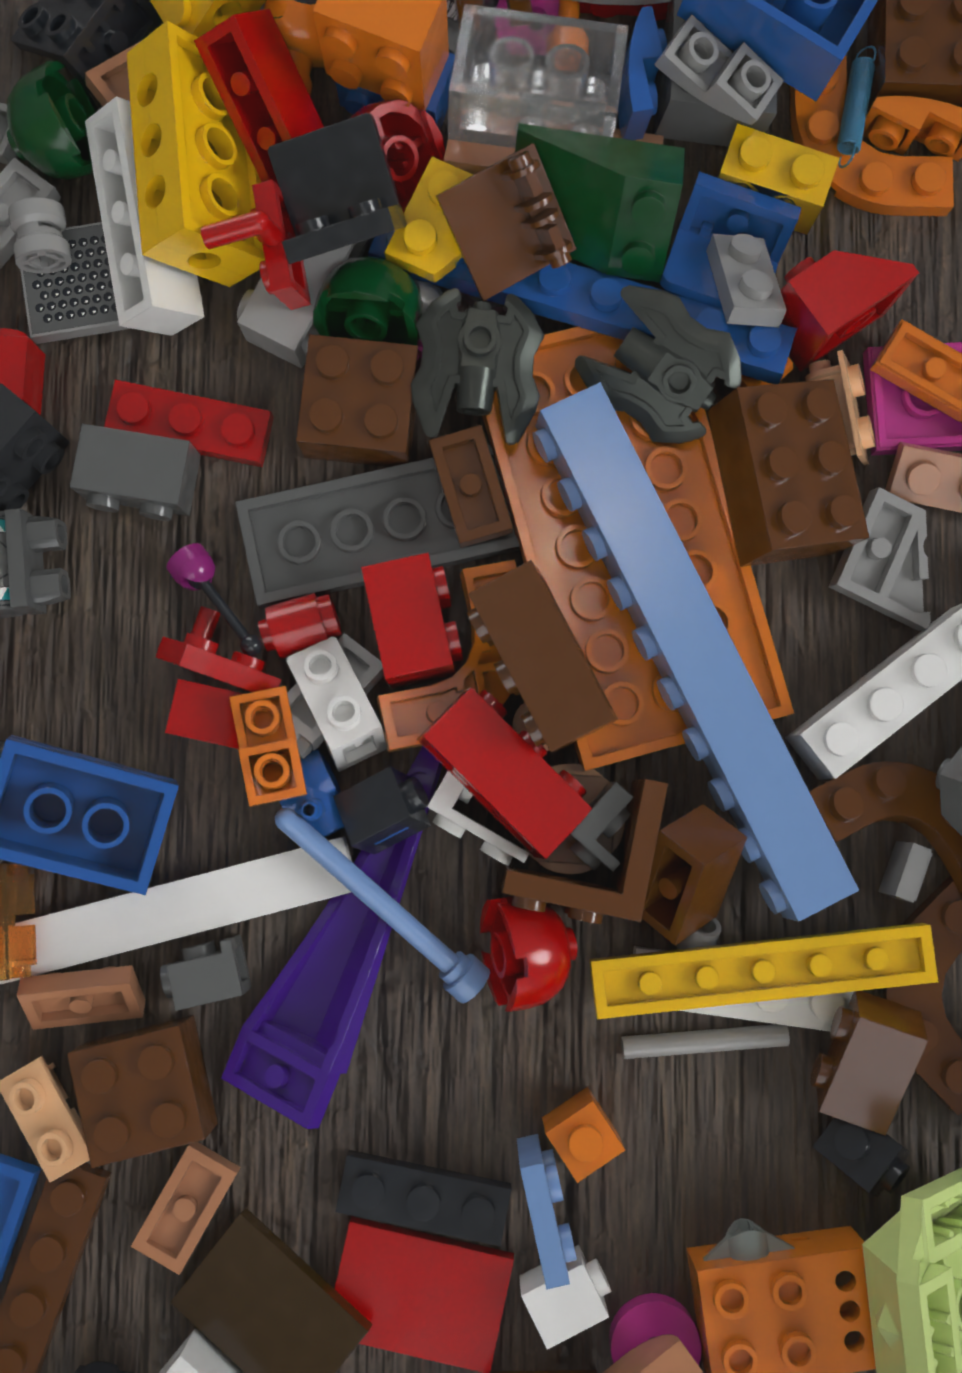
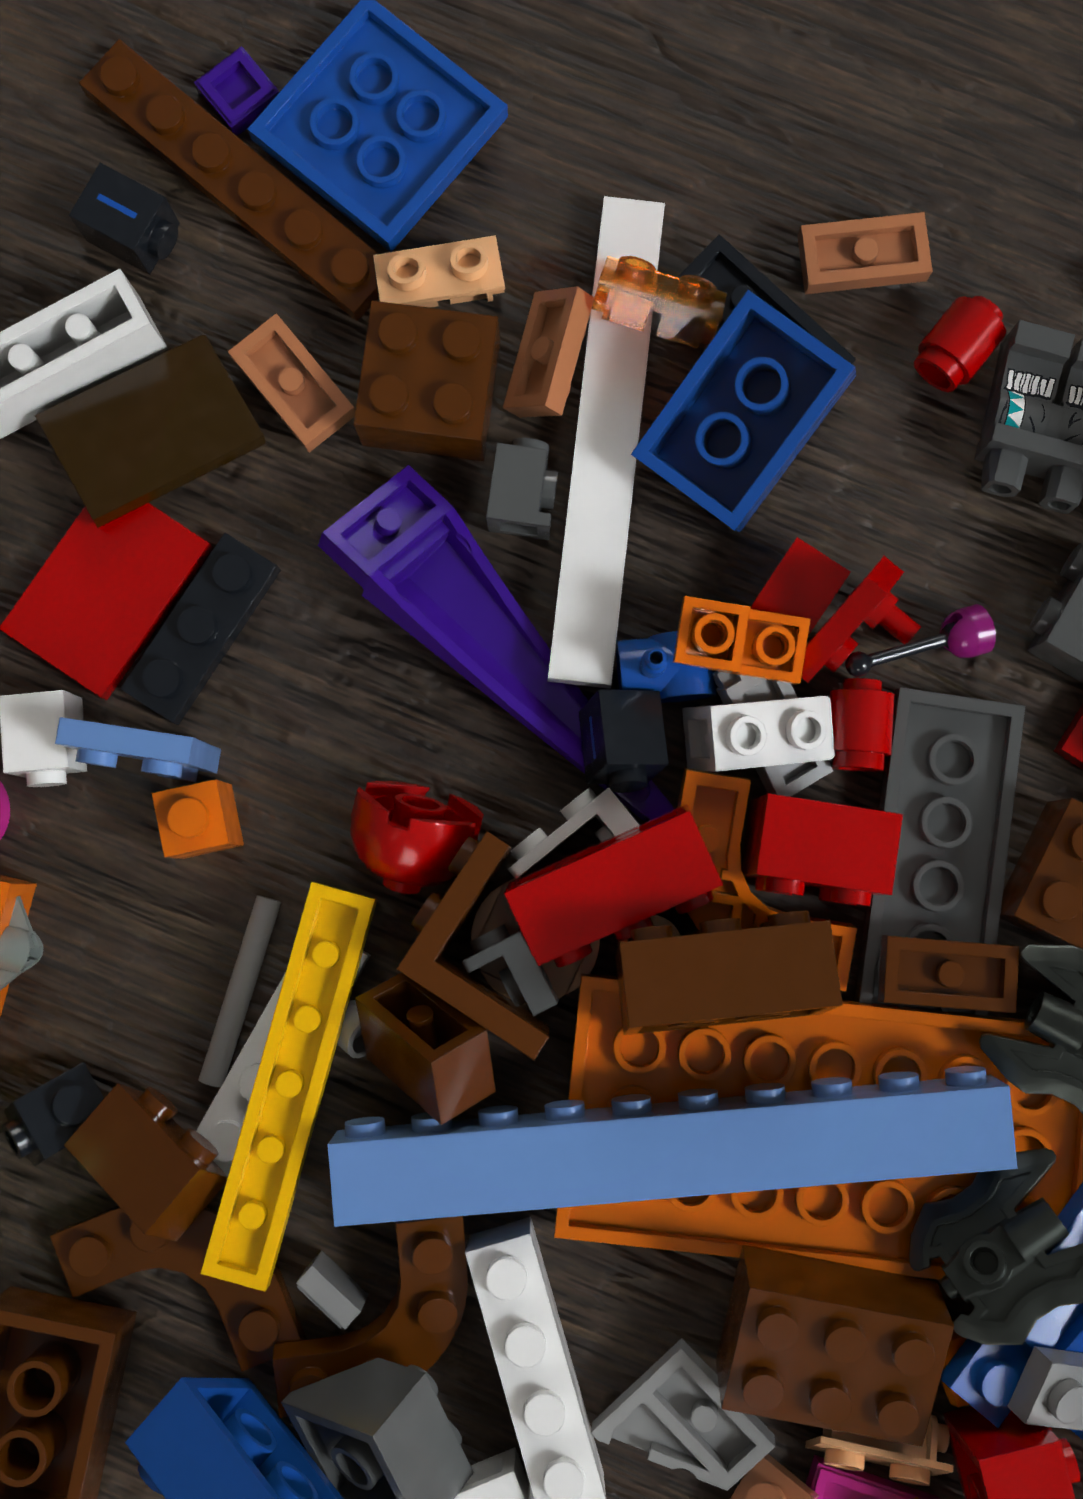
camera: 115 degrees right, 0 degrees up
(461, 973) = (416, 756): medium blue piece -> none

